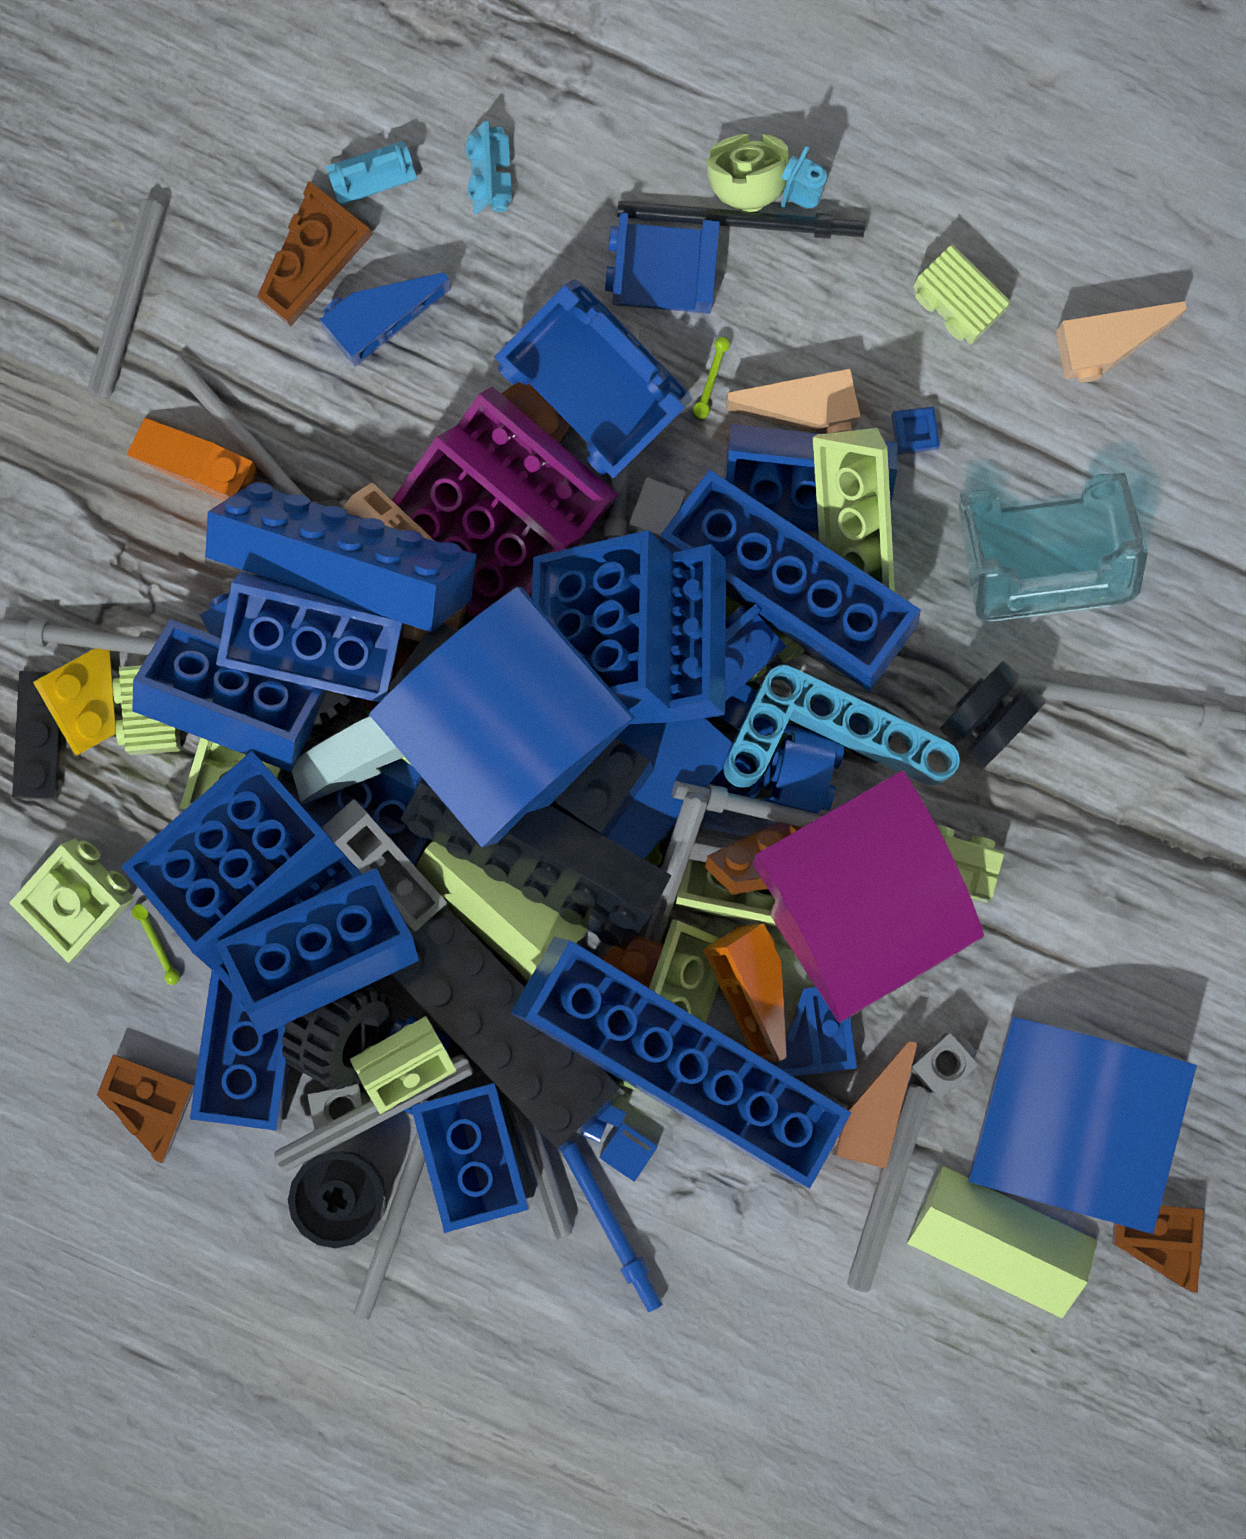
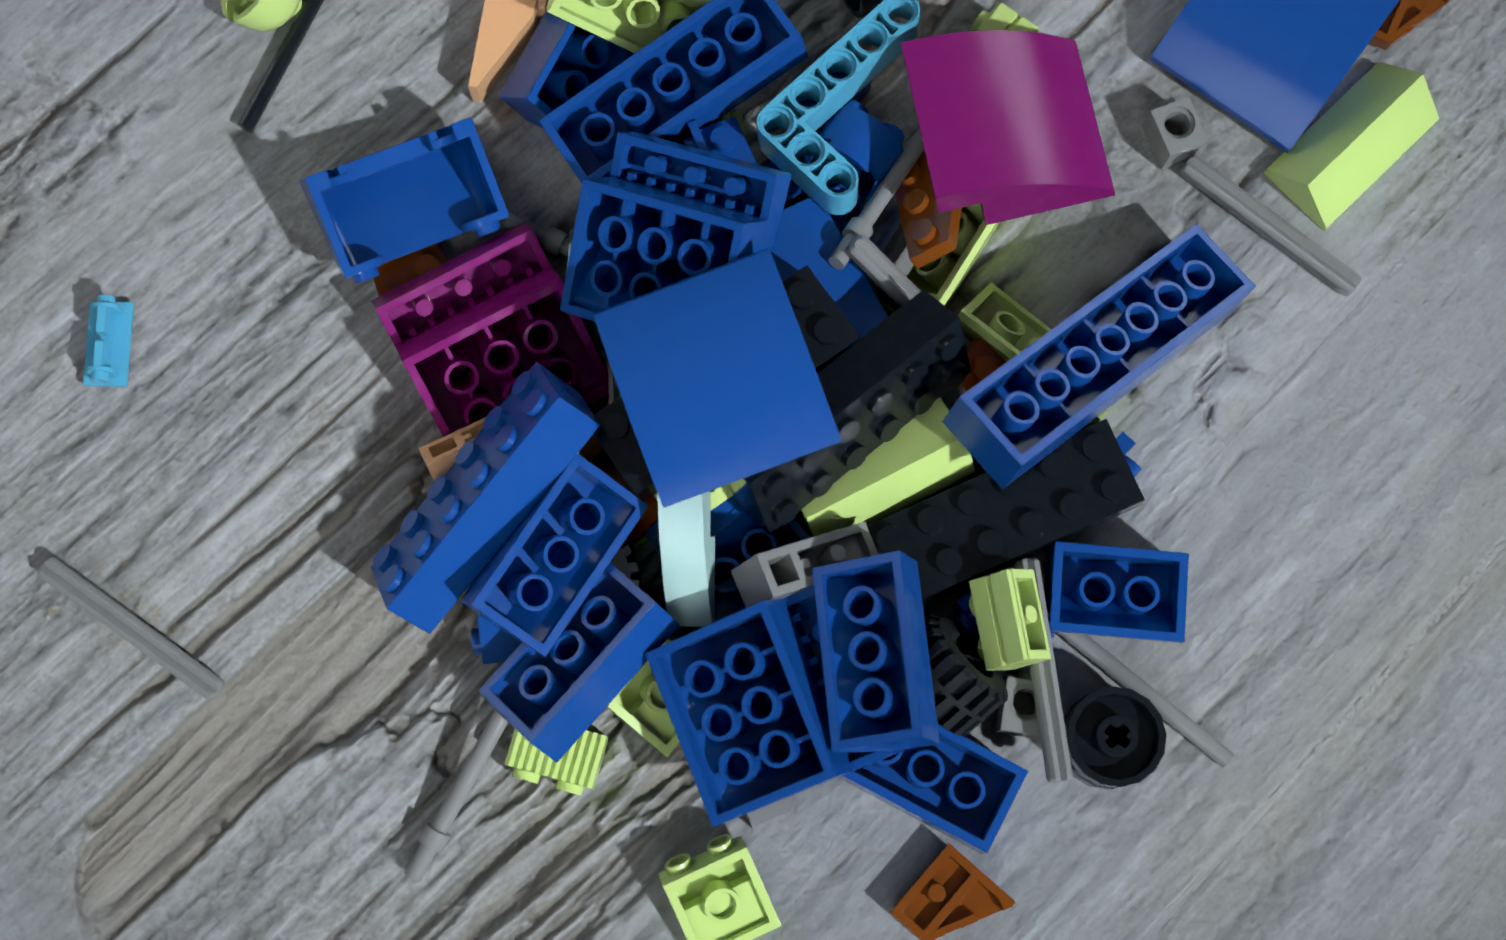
camera: 65 degrees left, 5 degrees down
(35, 744) = (538, 875): black plate -> none
(81, 699) = (520, 816): yellow wing -> none
(171, 976) = (756, 836): lime hinge -> none
(192, 460) = (322, 620): orange slope -> none
(234, 427) = (305, 568): light grey bar -> none
(314, 252) = (165, 428): dark orange wing -> none
(376, 314) = (251, 387): blue slope -> none
(487, 150) = (137, 227): medium azure hinge -> none
(541, 1174) = (1149, 537): light grey axle -> none
(628, 1152) = (1156, 449): blue tile -> none
(633, 1268) = (1267, 484): blue bar -> none
(655, 507) = (552, 196): light grey brick -> none
(663, 266) = (320, 103): blue panel -> none
(701, 409) = (417, 82): lime hinge -> none
(753, 987) = (1040, 273): orange slope -> none
(817, 1039) = (1107, 233): blue wing -> none
(876, 1112) = (1194, 200): nougat slope -> none

